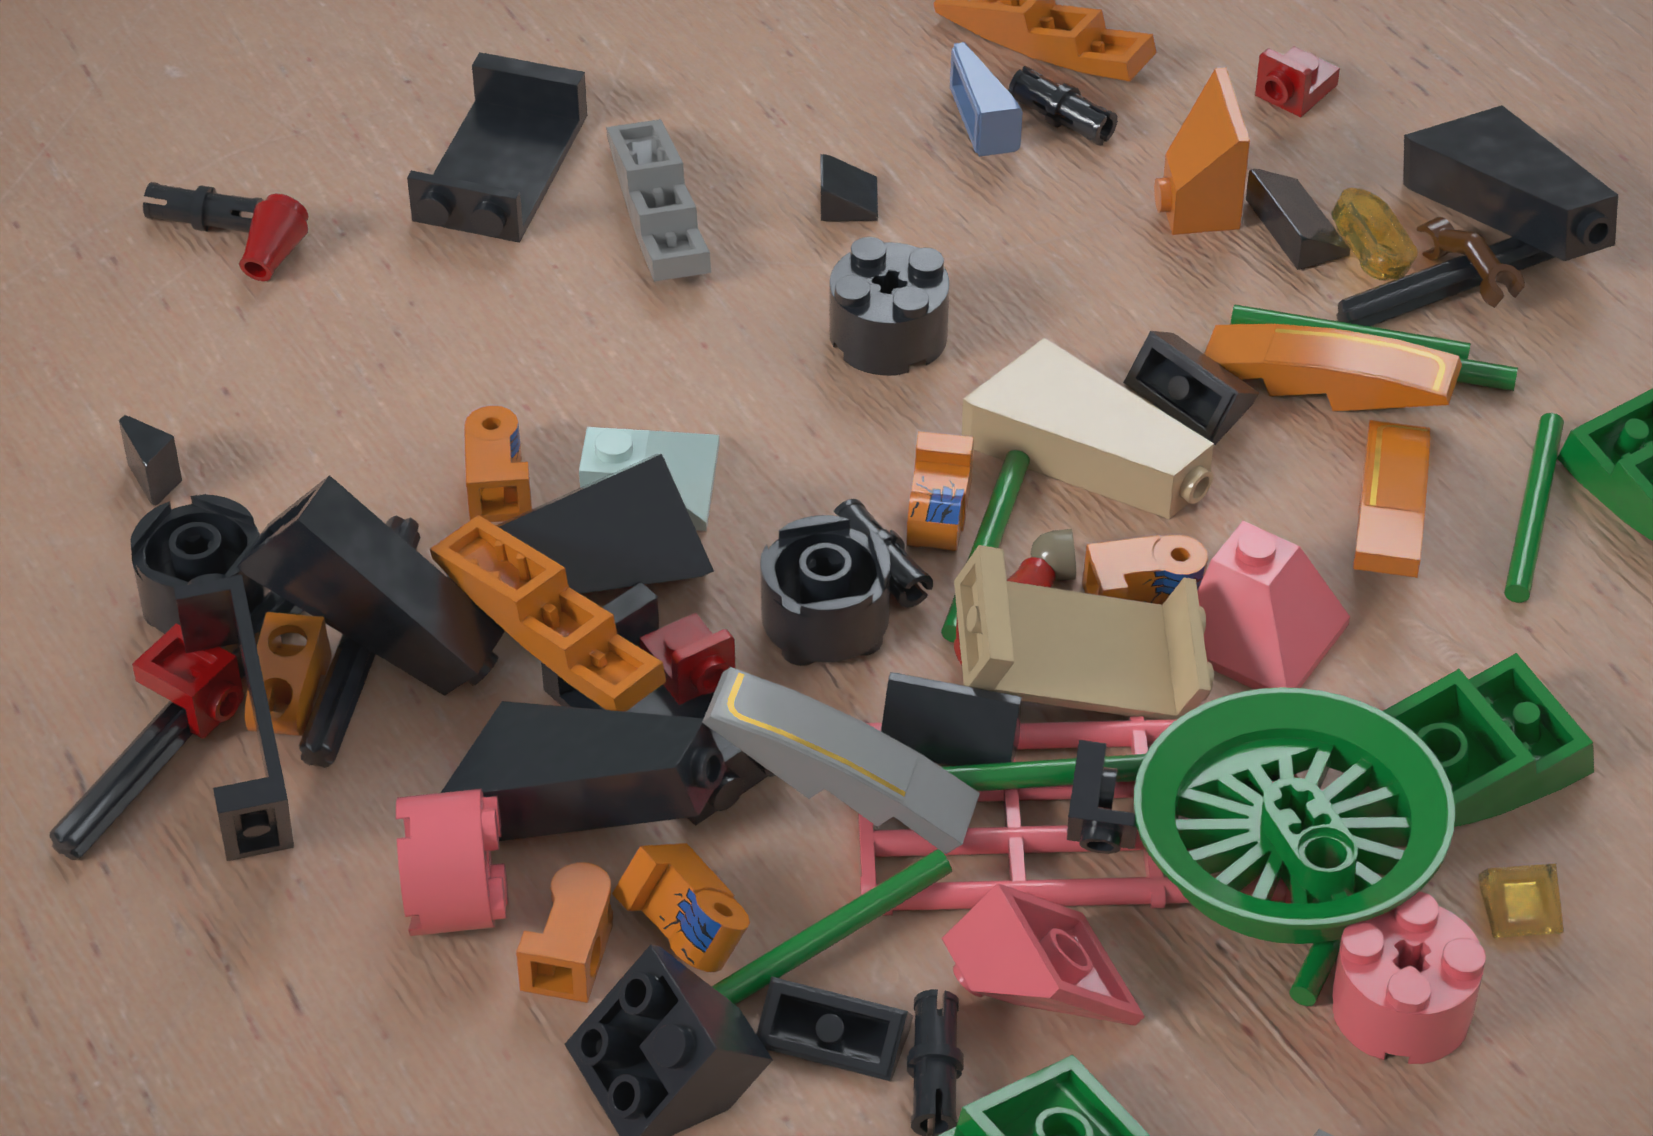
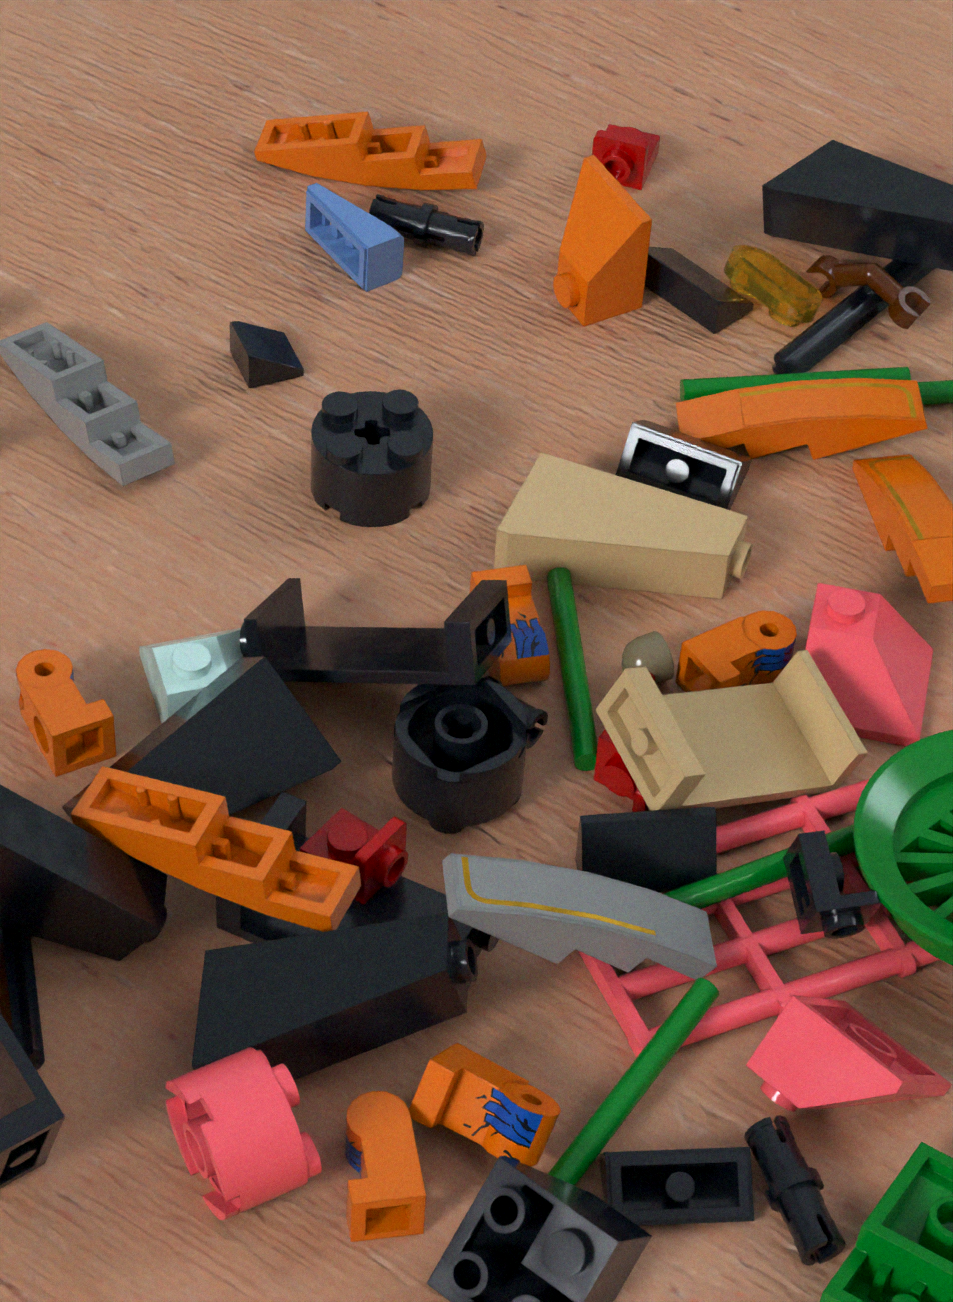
camera: 25 degrees left, 0 degrees up
(720, 454) = (392, 655): none -> black panel

